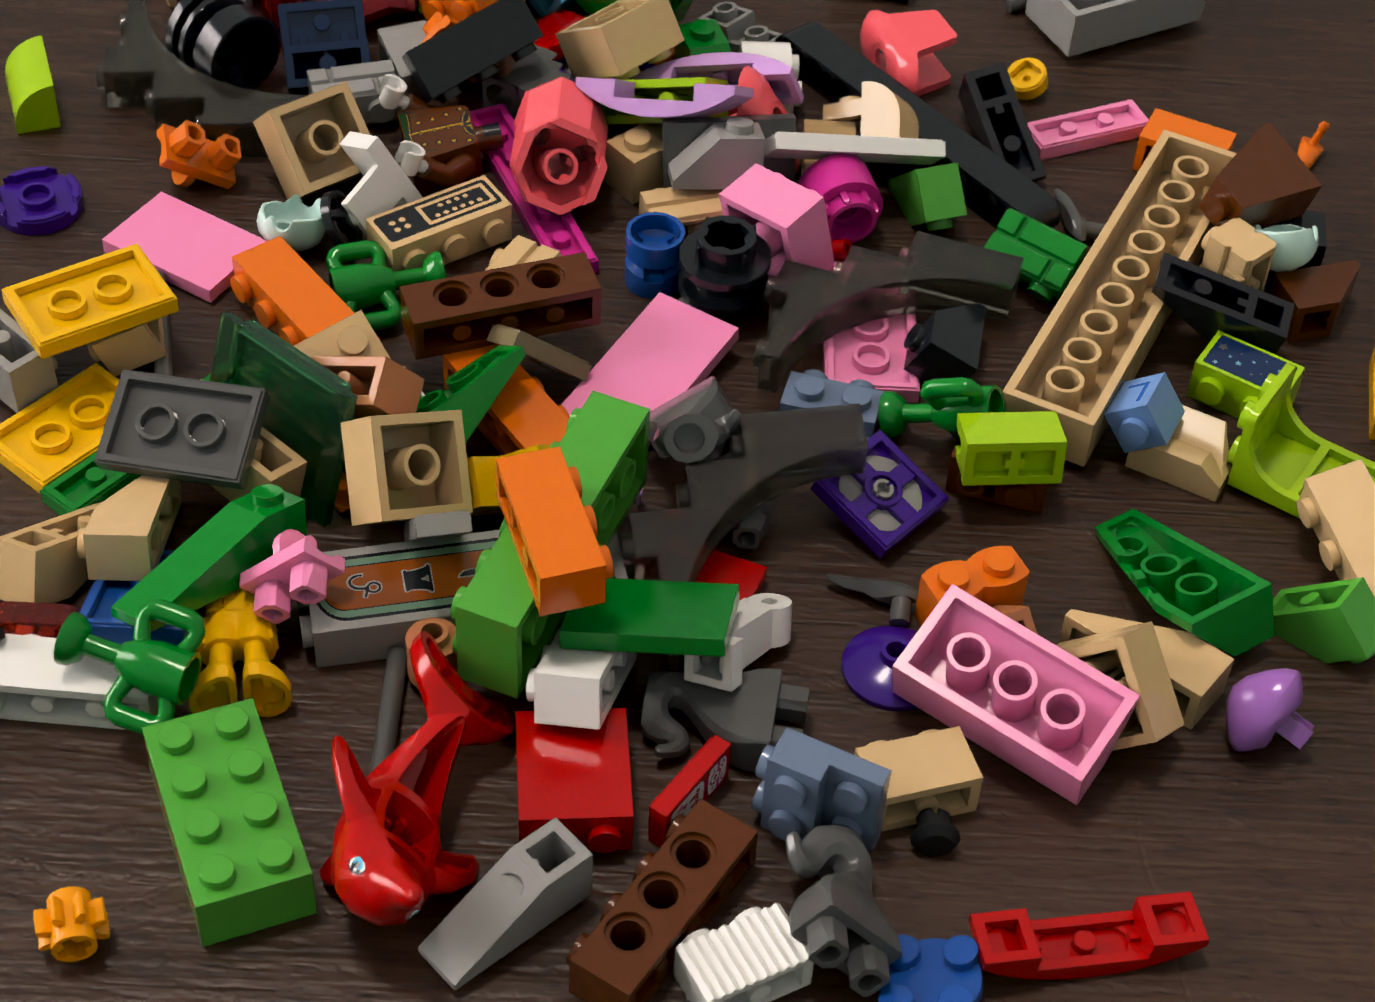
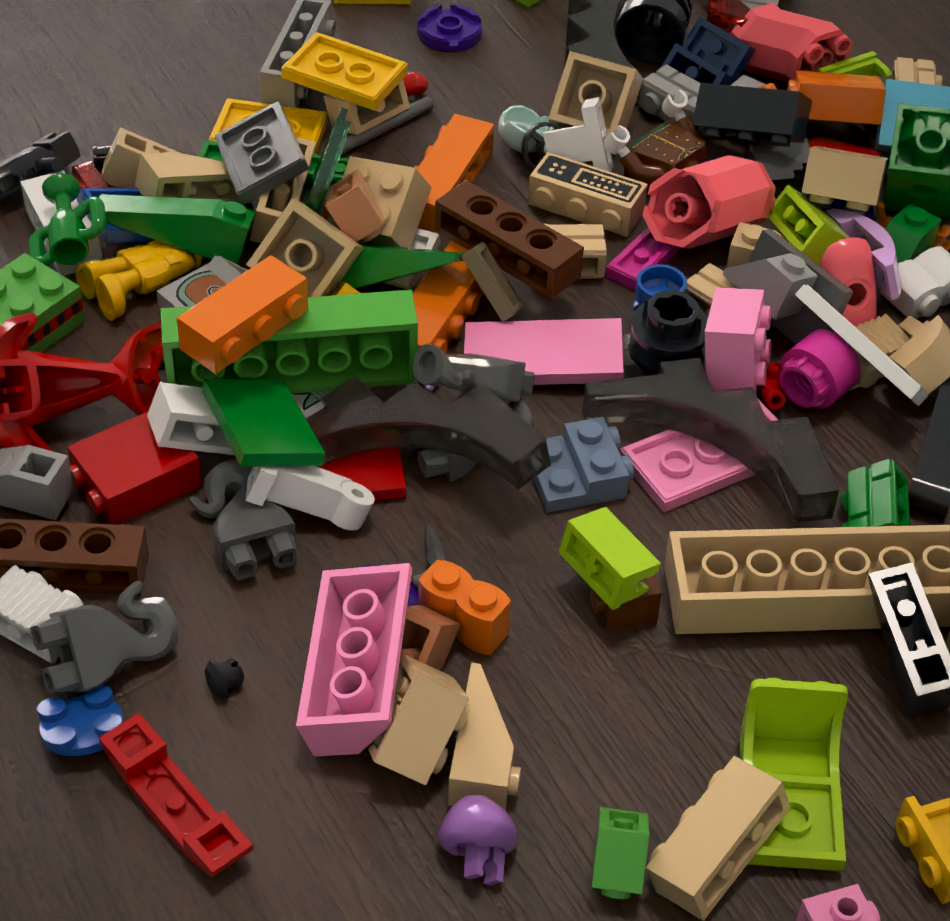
camera: 60 degrees right, 0 degrees up
(184, 244) = (467, 92): bright pink tile -> none
(194, 156) = (538, 60): orange hips -> none
(292, 573) = (187, 252): bright pink hips -> none
(374, 284) = (503, 185): green piece -> none
(696, 780) = (169, 526): red tile -> none
(707, 99) = (775, 204): lavender slope -> none
(819, 786) = (187, 583): sand blue plate -> none
(886, 499) = (525, 521): dark purple piece -> none
(926, 773) = (261, 641): tan brick -> none
(930, 196) = (886, 423): bright green slope -> none
(944, 401) = (621, 496): green piece -> none
(946, 343) = (718, 492): black slope -> none
(1144, 413) = (740, 635): medium blue brick -> none
(1191, 458) = (731, 683): tan slope -> none
(1191, 583) = (573, 739): green wedge -> none
(1233, 373) = (872, 708): lime brick -> none

